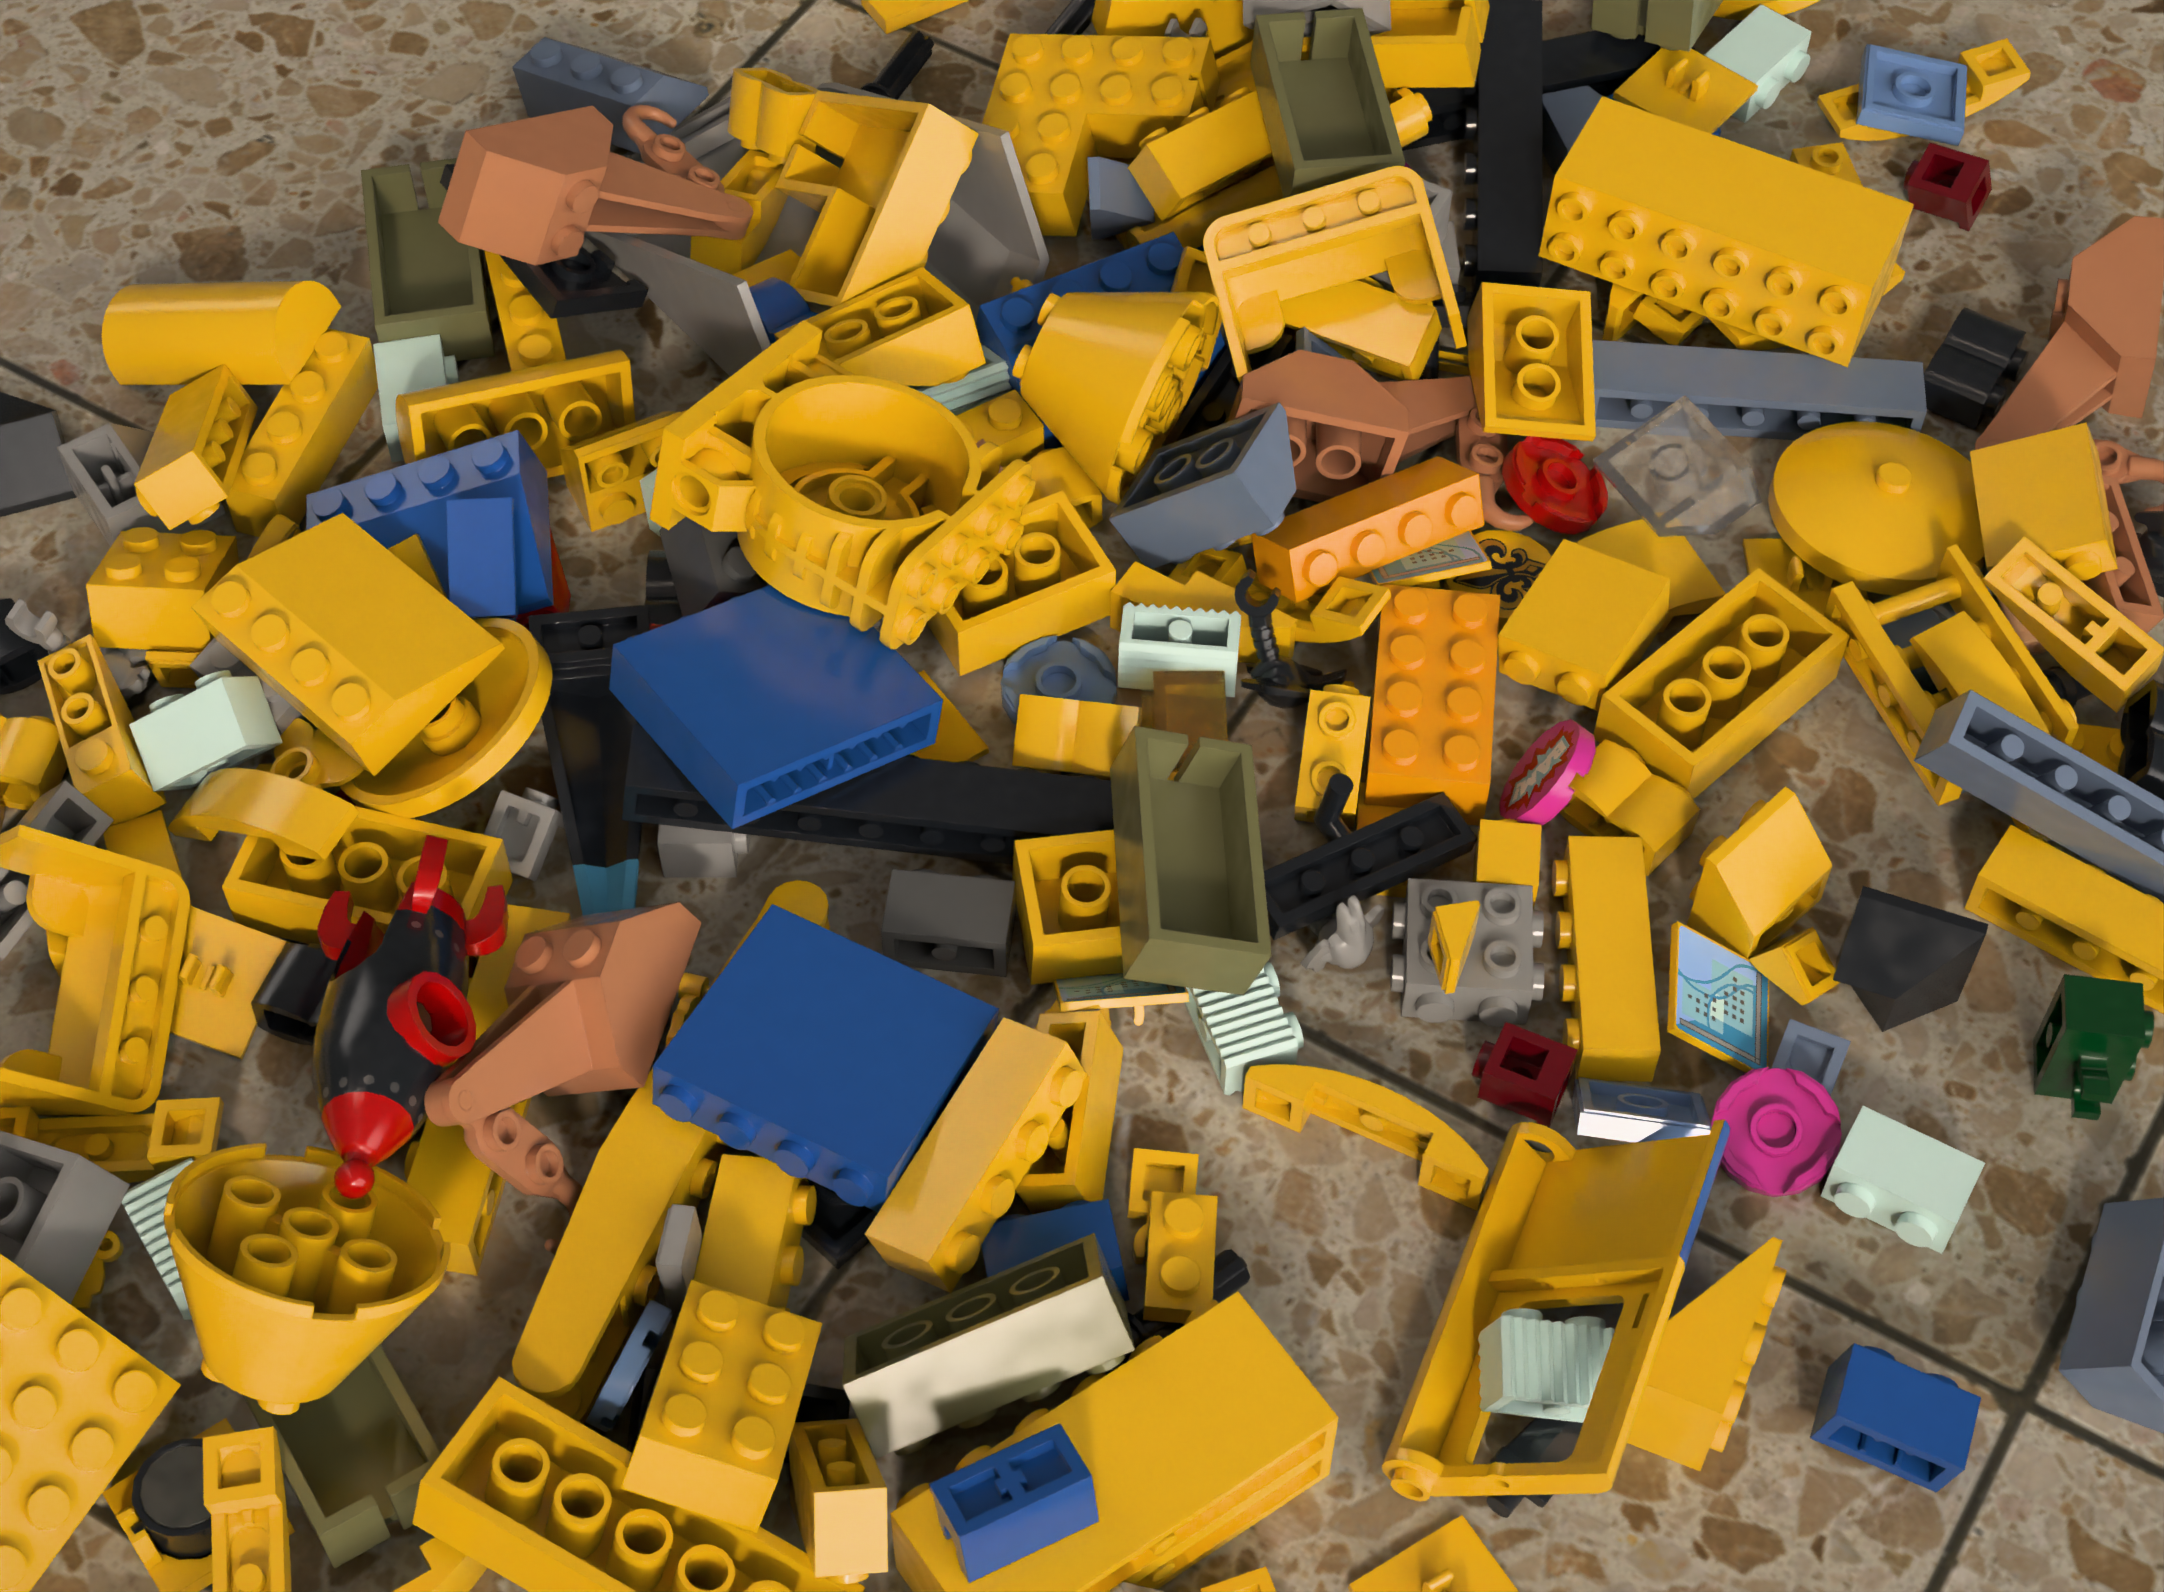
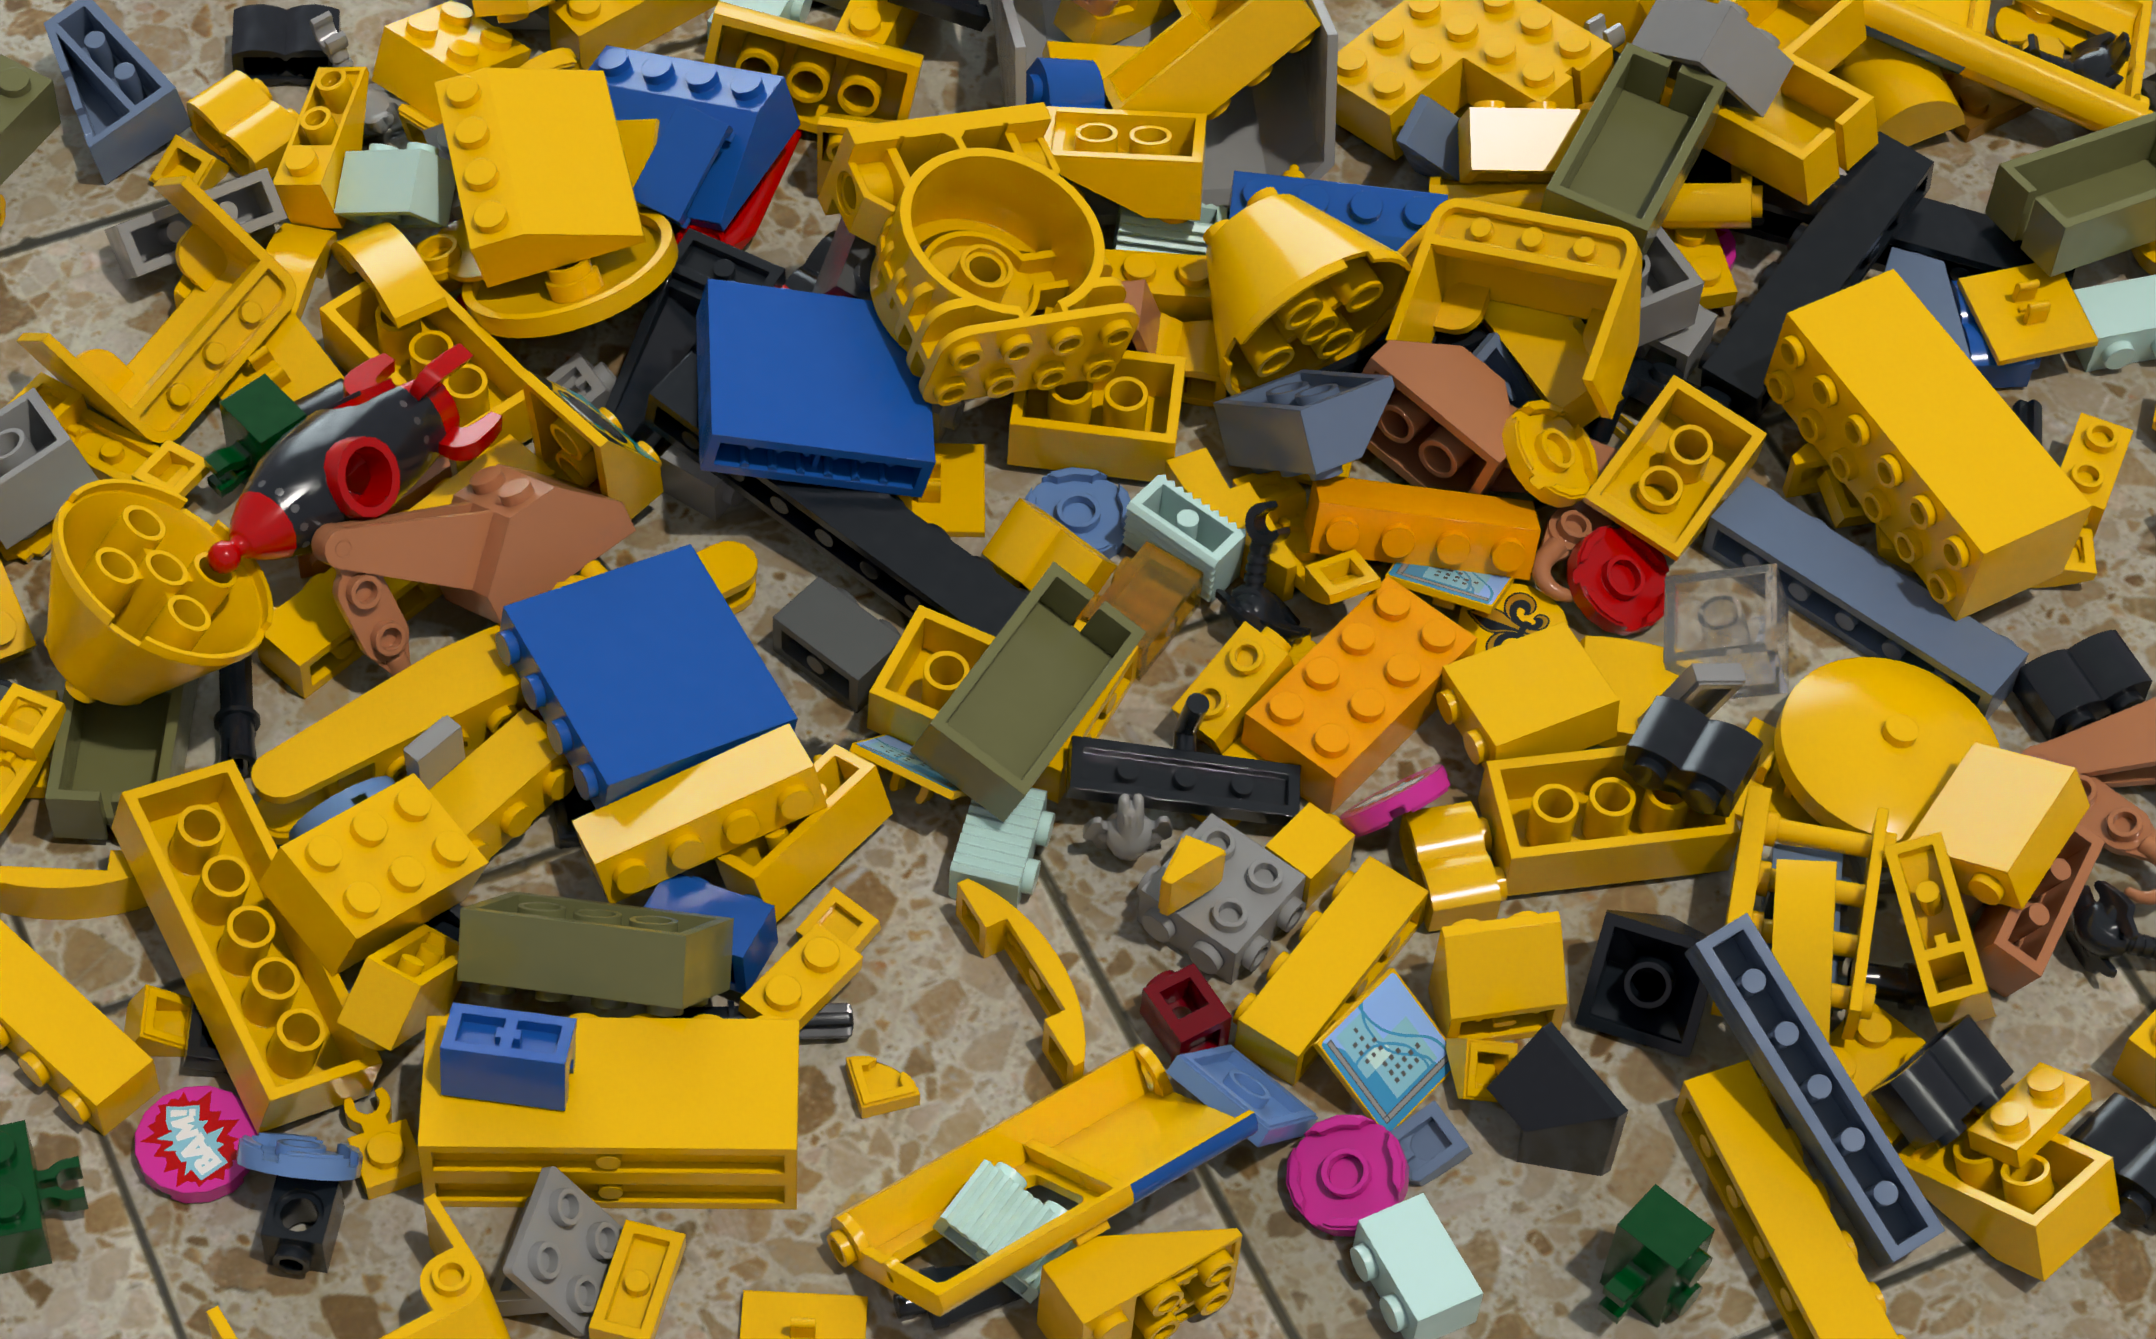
camera: 30 degrees right, 0 degrees up
(260, 1049) = (251, 424): none -> dark green brick
(438, 1342) = (236, 718): none -> black axle
(594, 872) = (590, 445): none -> yellow slope
(1310, 1310) = (879, 1087): none -> yellow tile
(1433, 404) = (1549, 454): none -> yellow tile
(1720, 546) = (1706, 686): none -> light grey tile
(1771, 590) = (1692, 756): none -> black brick
(1871, 805) = (1644, 982): none -> black slope

